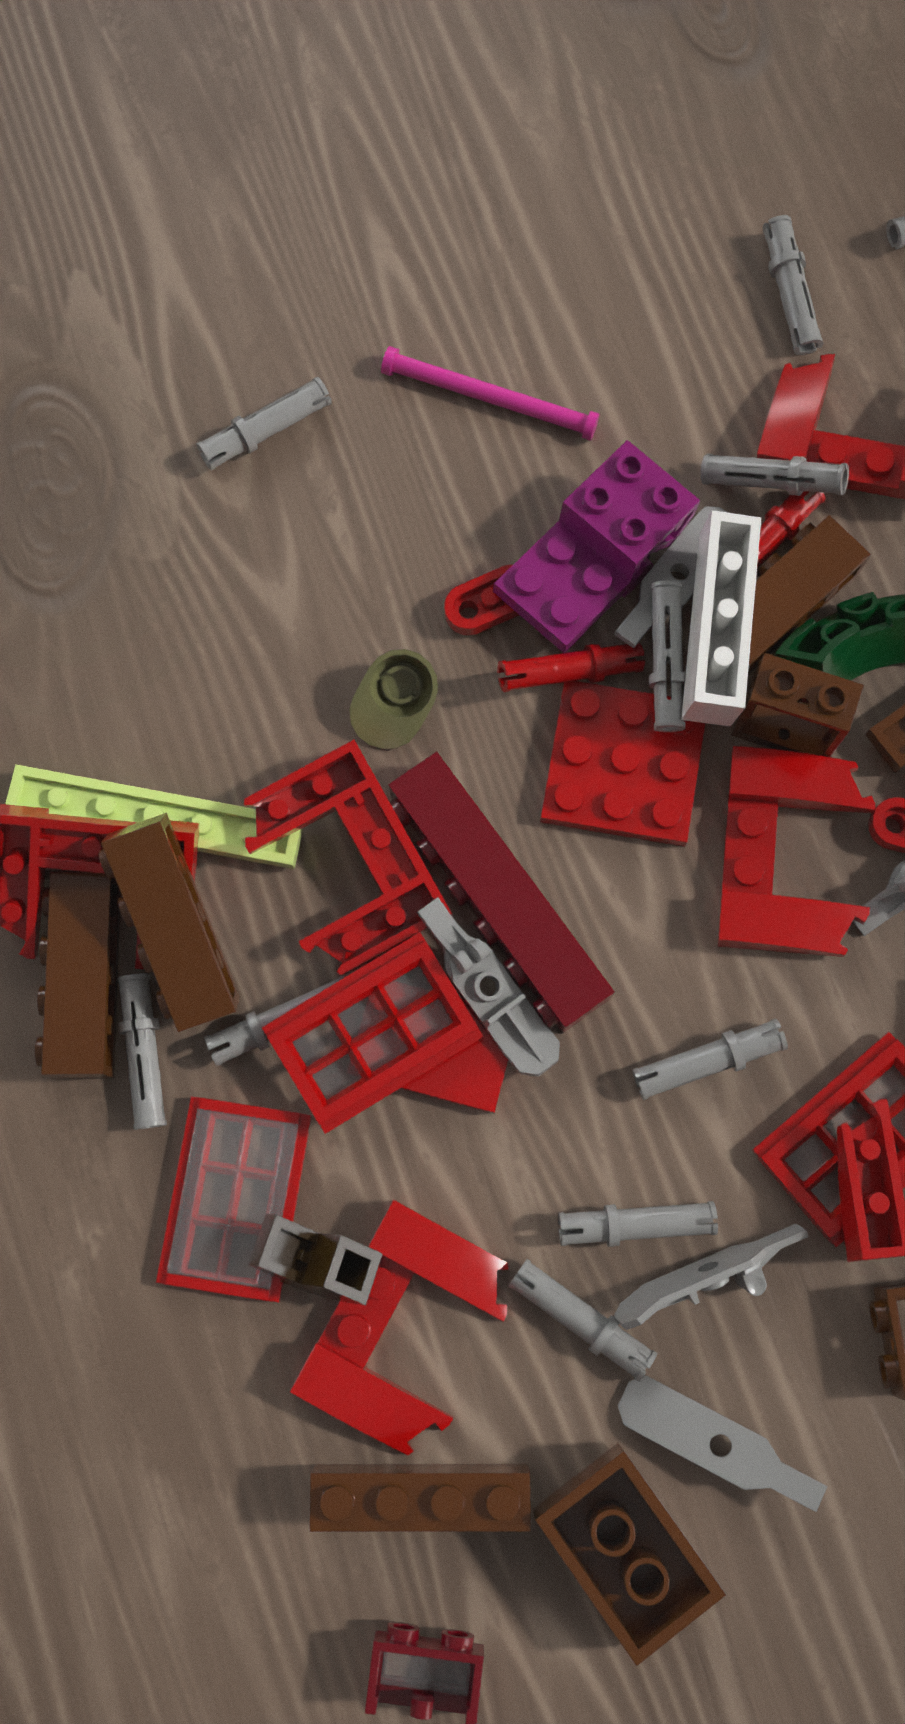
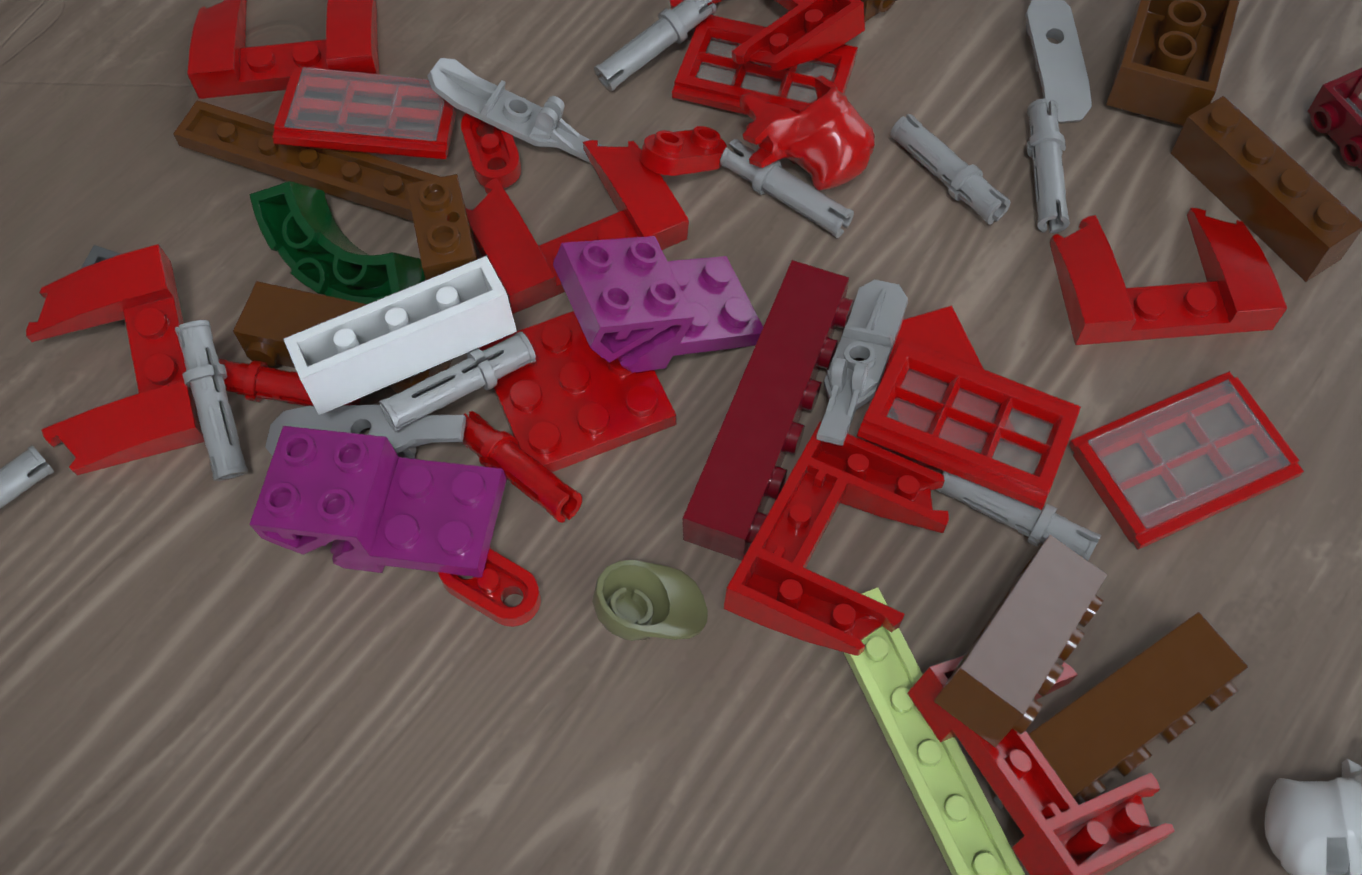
camera: 125 degrees left, 15 degrees down
(141, 1050) = (1102, 652): light grey pin -> none
(315, 1261) = (1178, 346): dark brown brick -> none
(490, 393) = (253, 778): dark pink bar -> none
(640, 850) = (650, 307): none -> magenta piece
(707, 1274) = (970, 113): light grey piece -> none
(730, 1112) = (822, 139): none -> red piece
(800, 991) = (683, 151): none -> red plate

